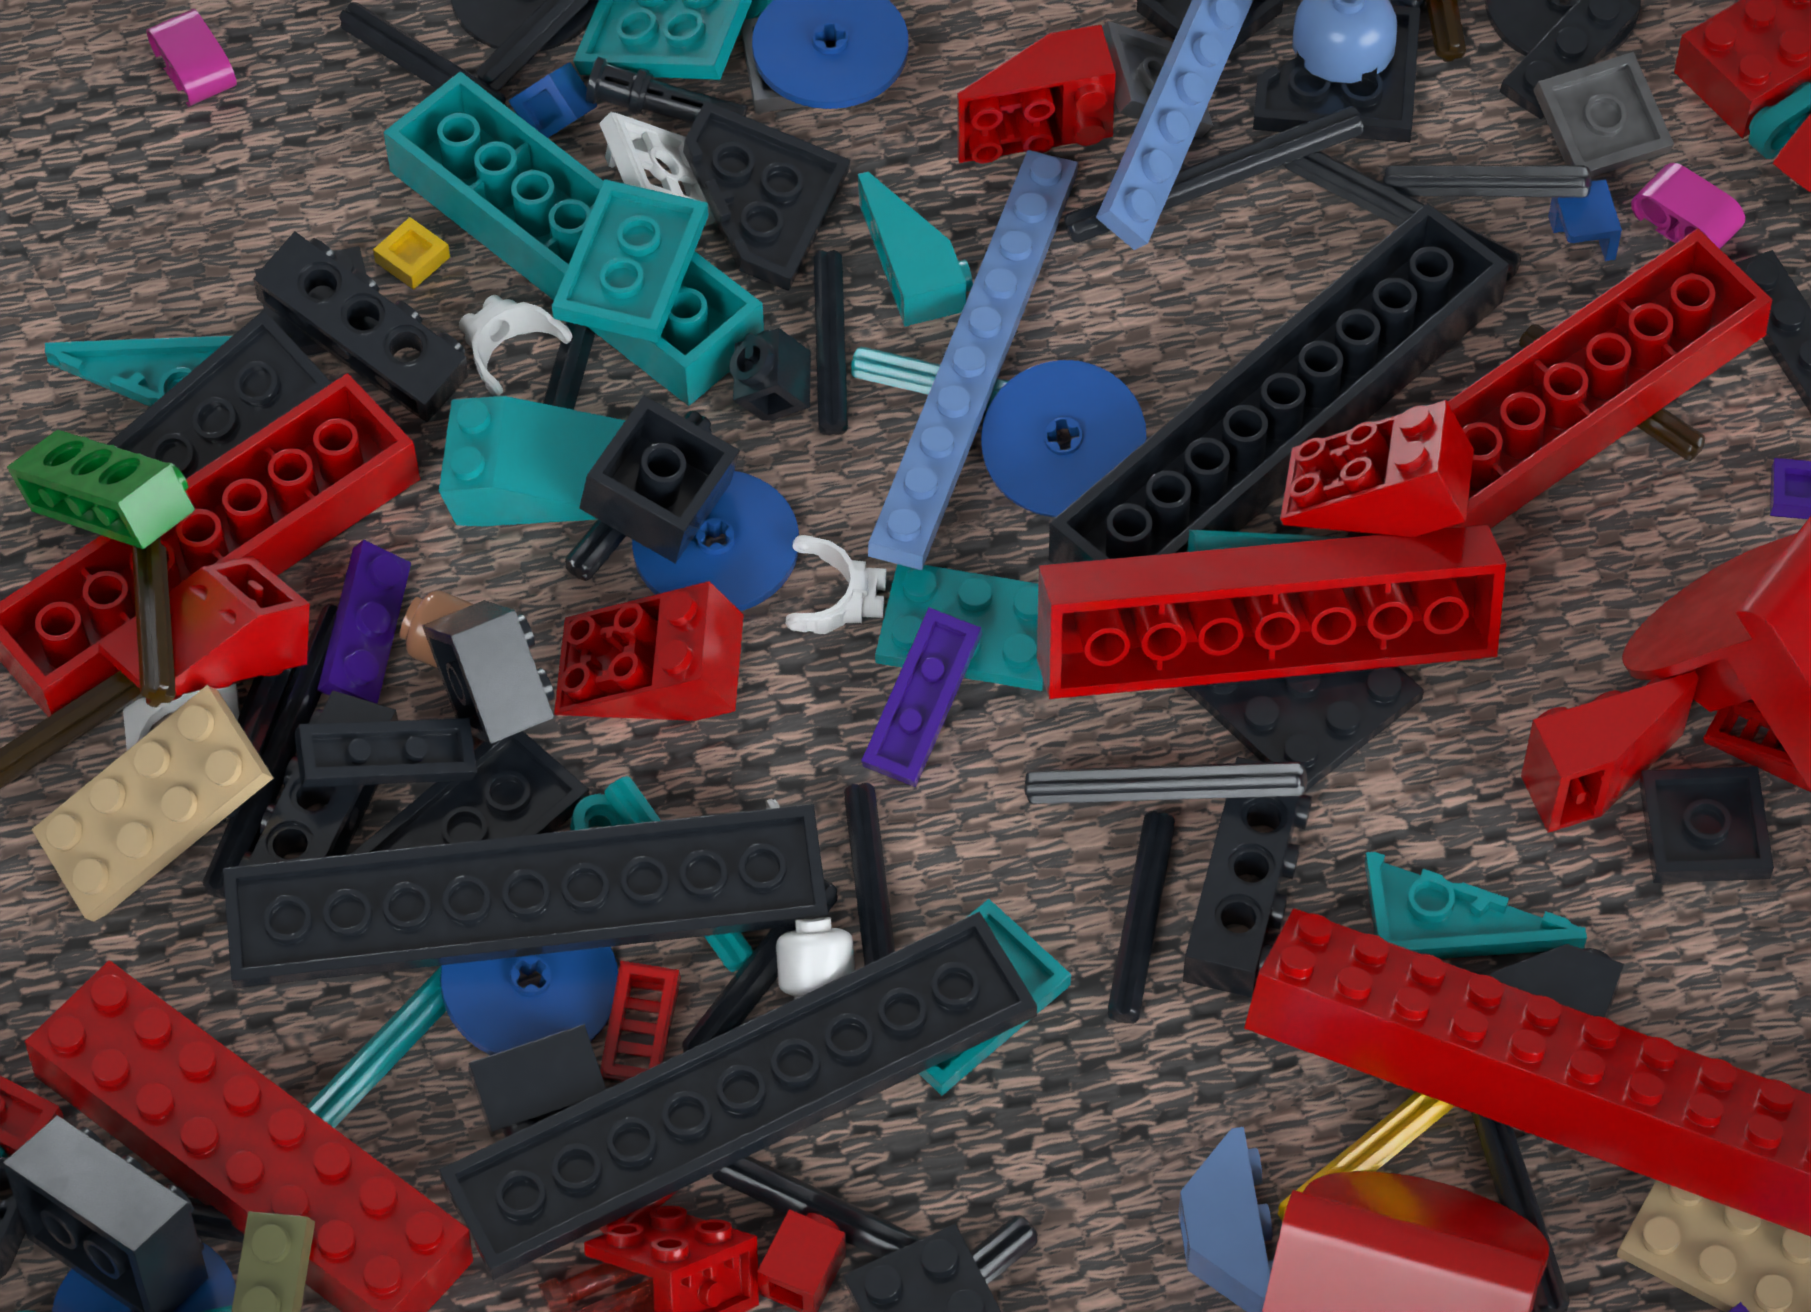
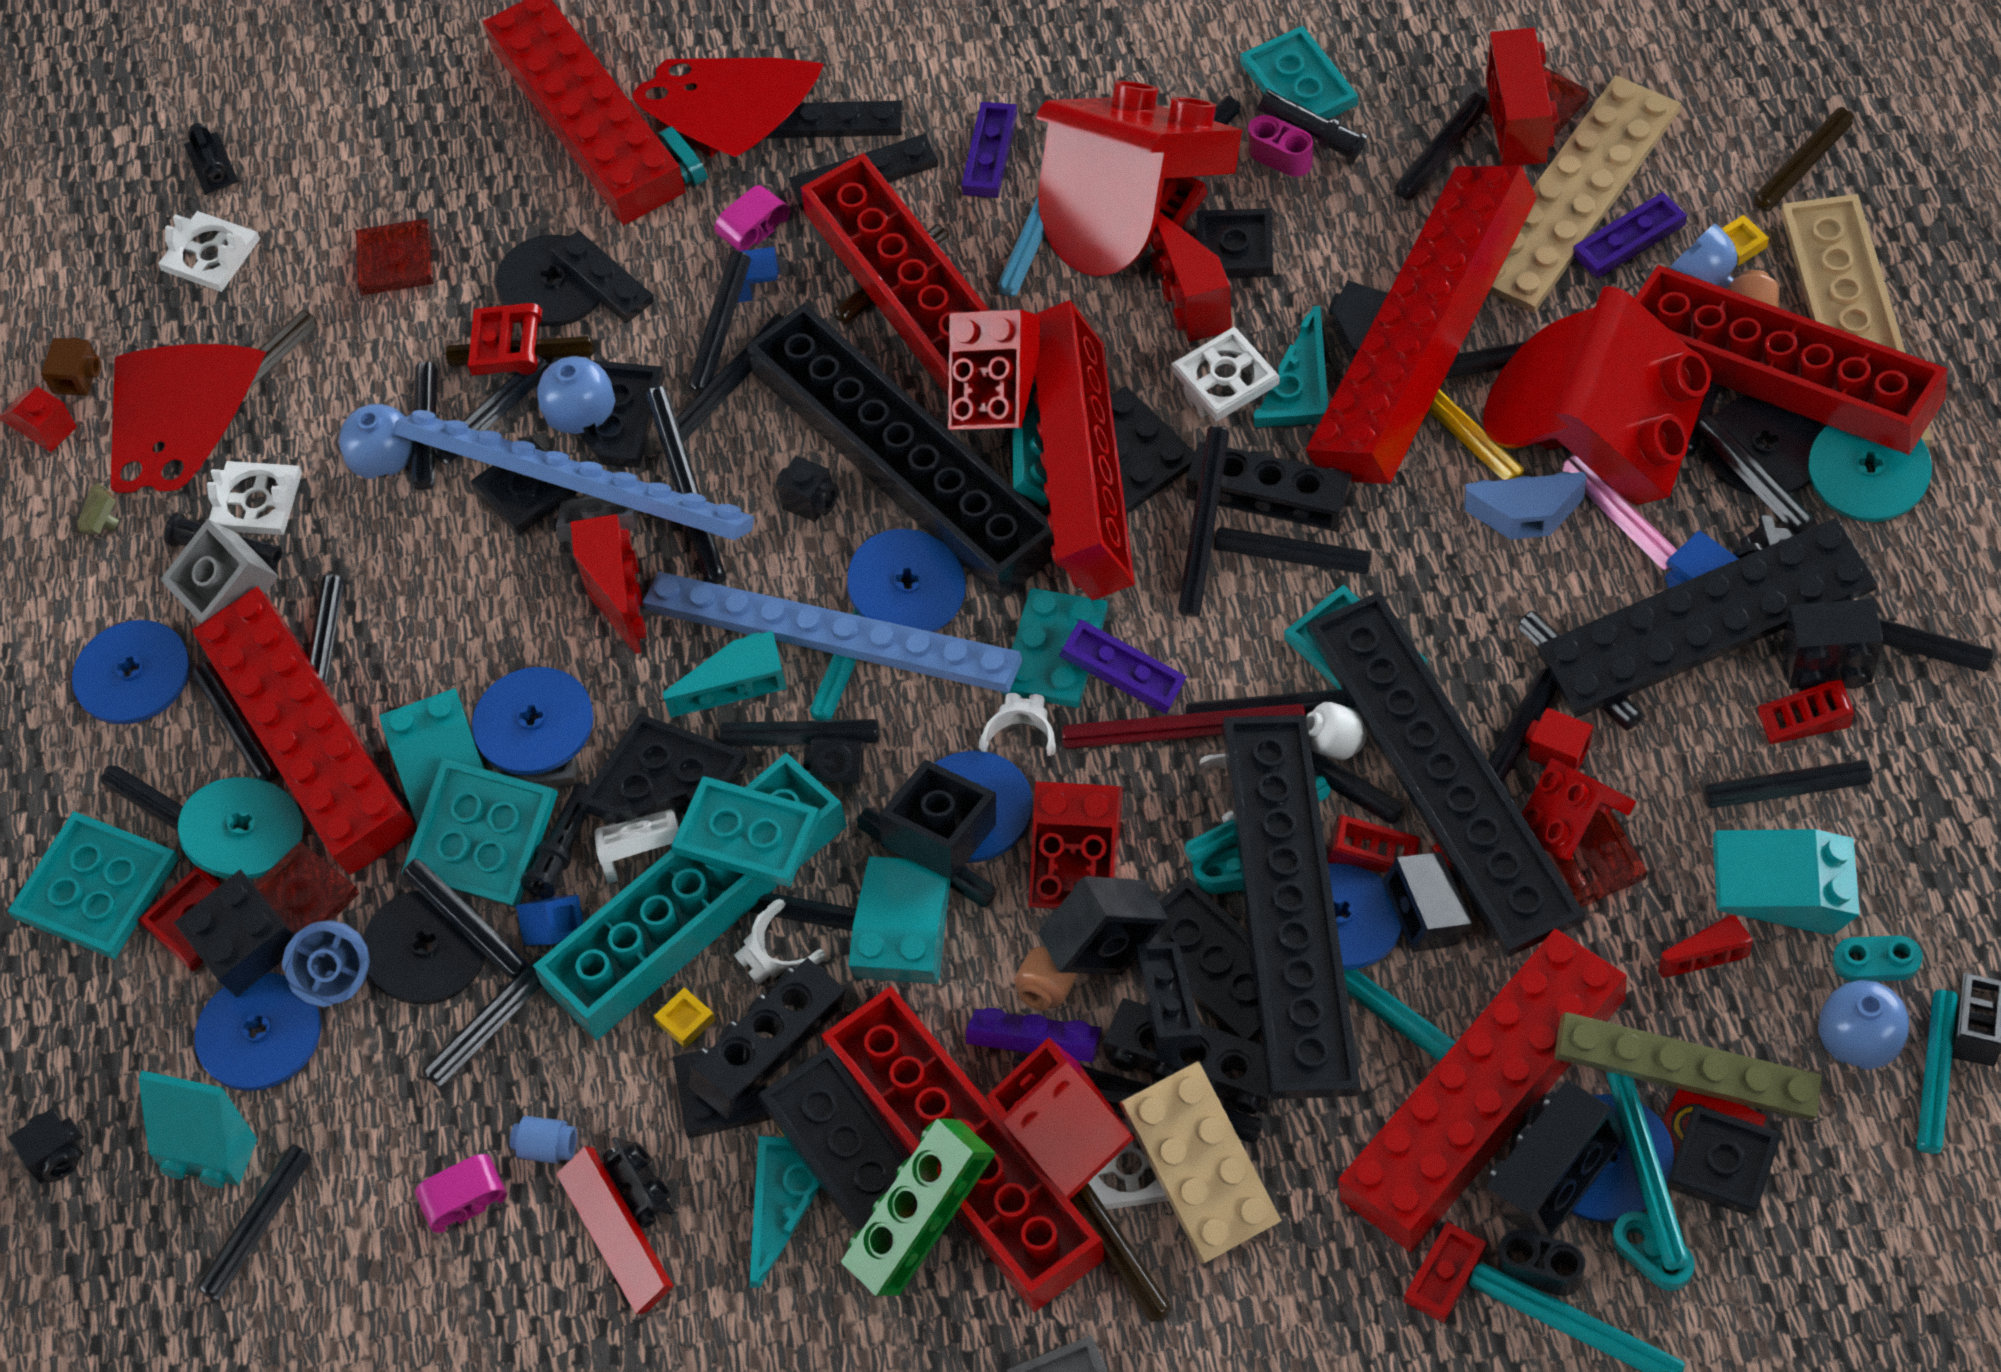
camera: 80 degrees left, 0 degrees up
(132, 210) = (615, 1230): none -> tile
(153, 624) = (1067, 1141): dark brown axle -> none
(196, 229) = (629, 1166): none -> black hinge
(253, 128) = (543, 1140): none -> medium blue brick
(831, 778) = (1162, 727): none -> dark red axle
(1210, 309) = (806, 489): none -> black brick
(1409, 774) = (1249, 360): none -> white piece
(1604, 115) = (667, 257): flat silver plate -> none
(1656, 548) = (1022, 254): none -> medium azure axle

